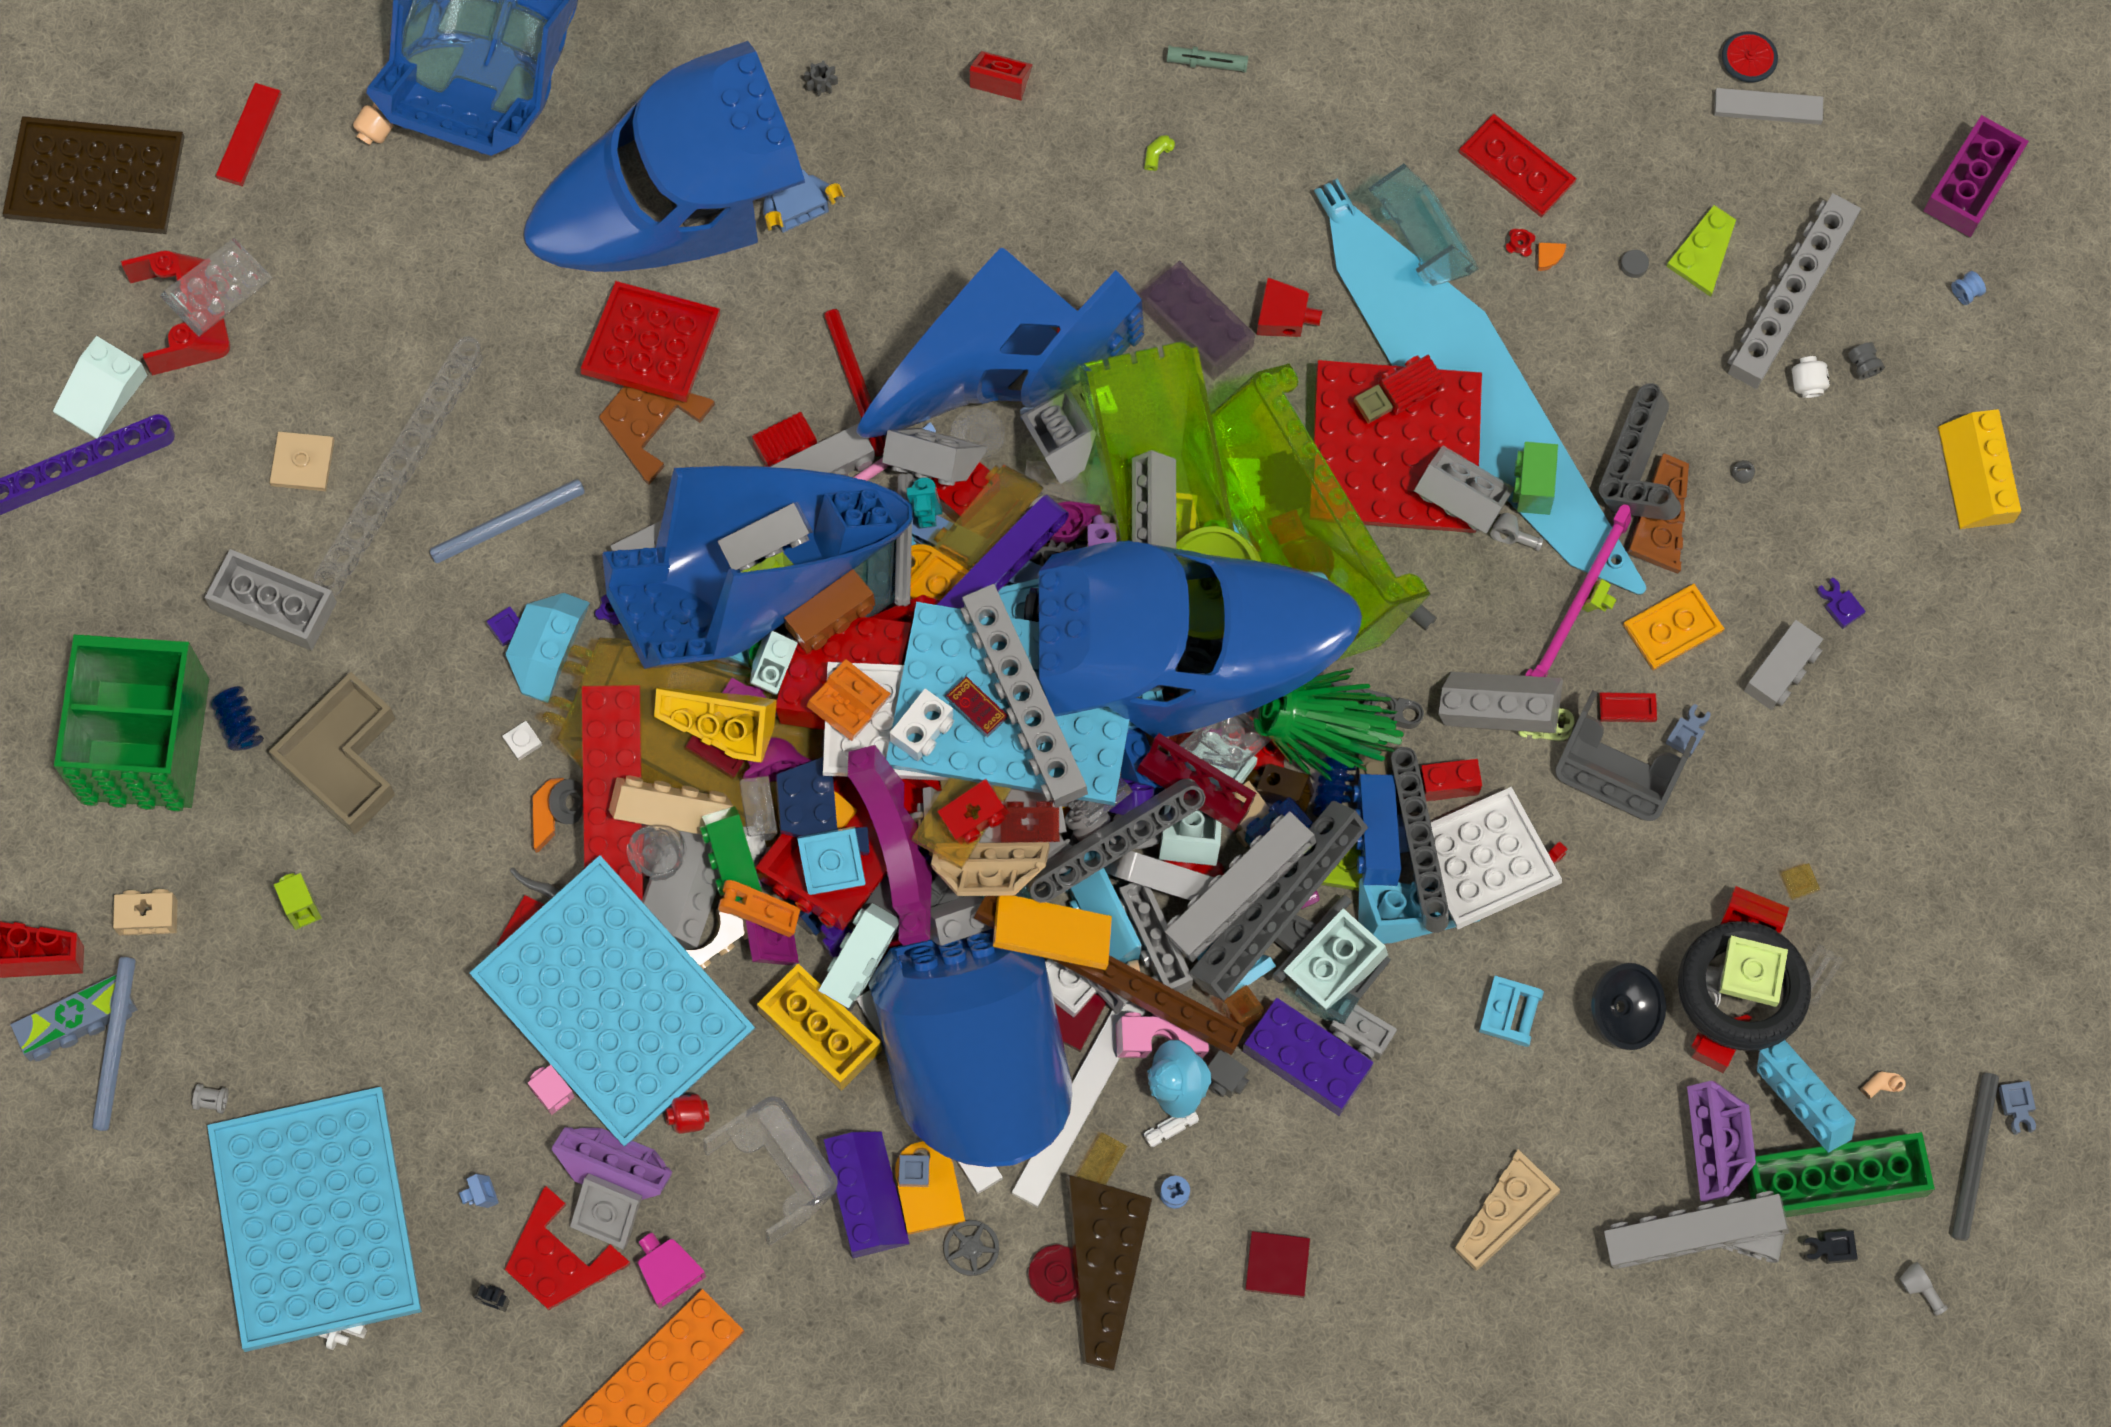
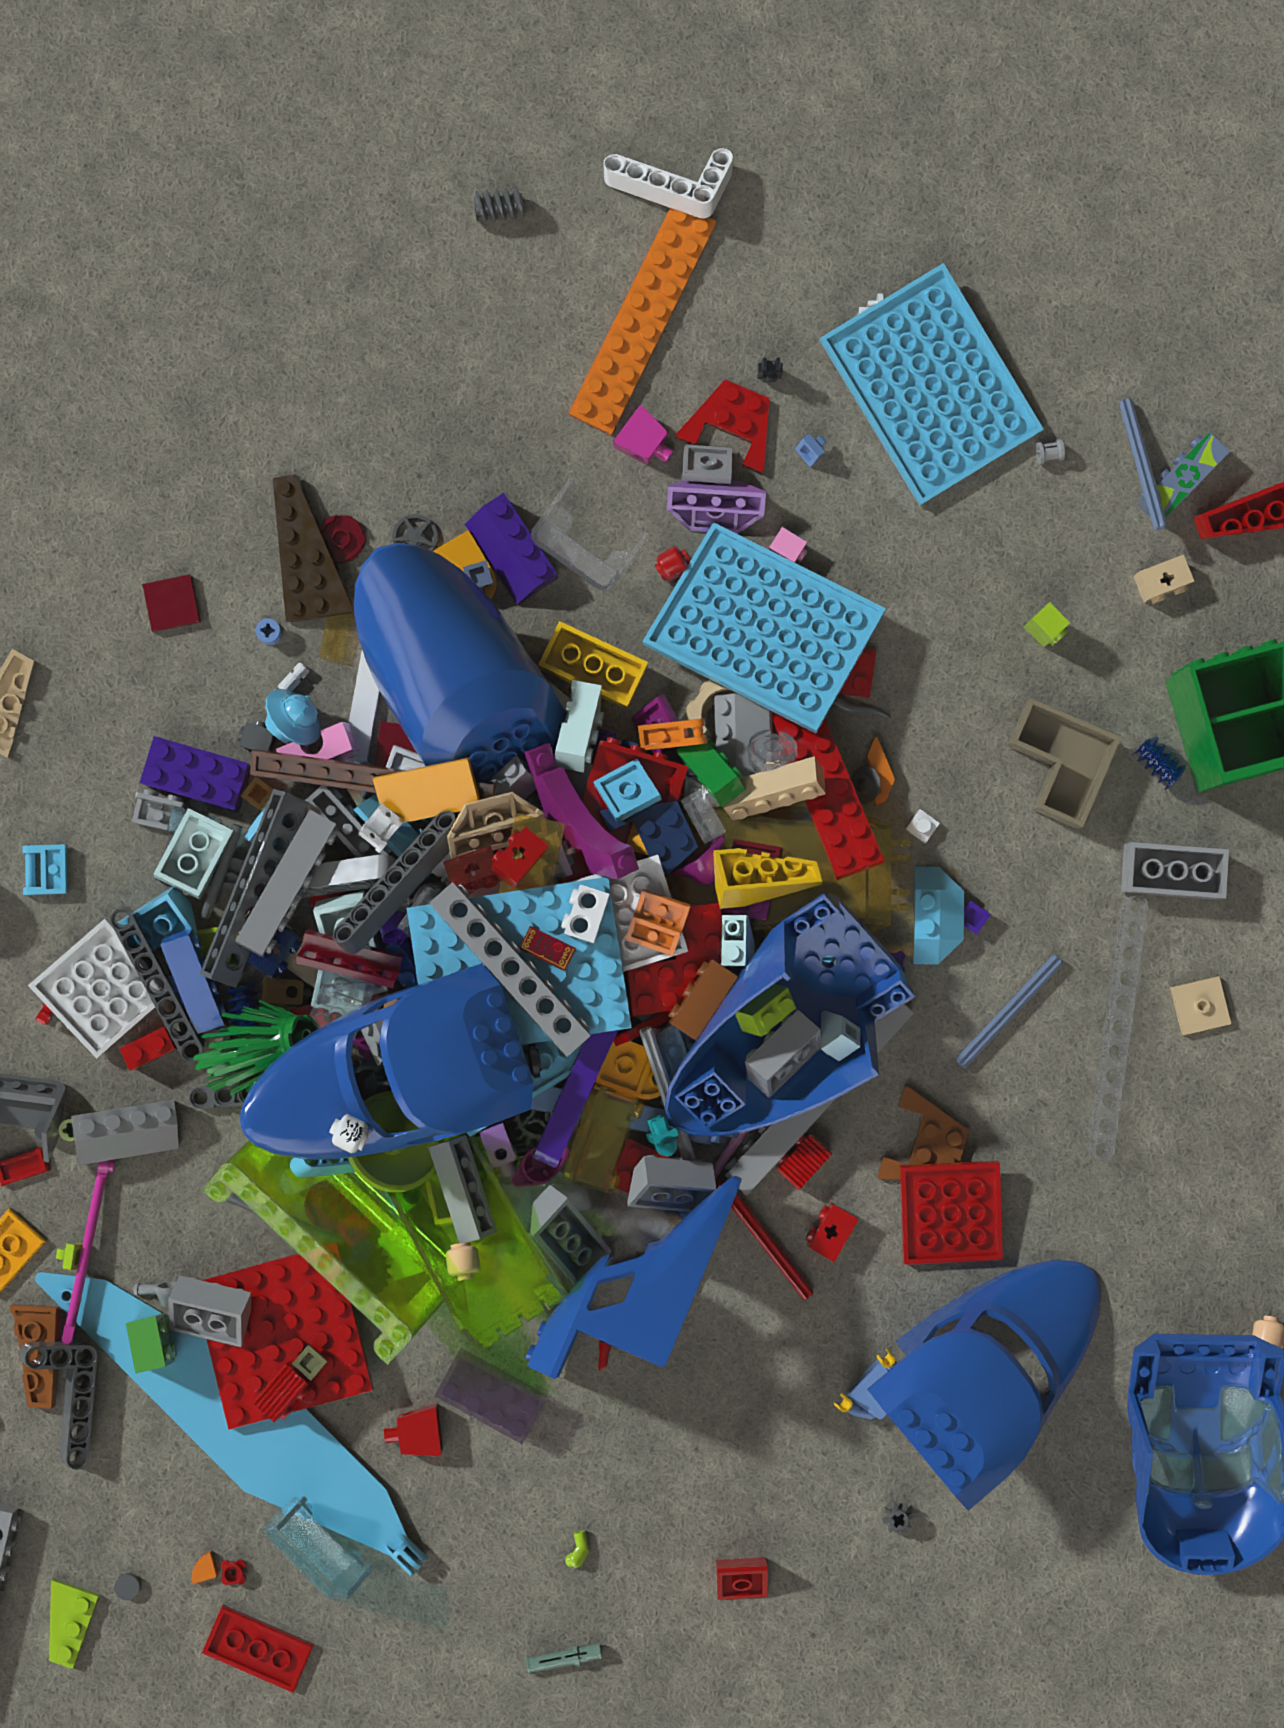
camera: 160 degrees right, 15 degrees up
(699, 537) = (838, 1035): none -> light aqua slope
(786, 351) = (833, 1244): none -> red brick
(1118, 909) = (380, 827): none -> white piece
(1178, 439) = (462, 1261): none -> light nougat head
(1247, 569) = (350, 1133): none -> white head

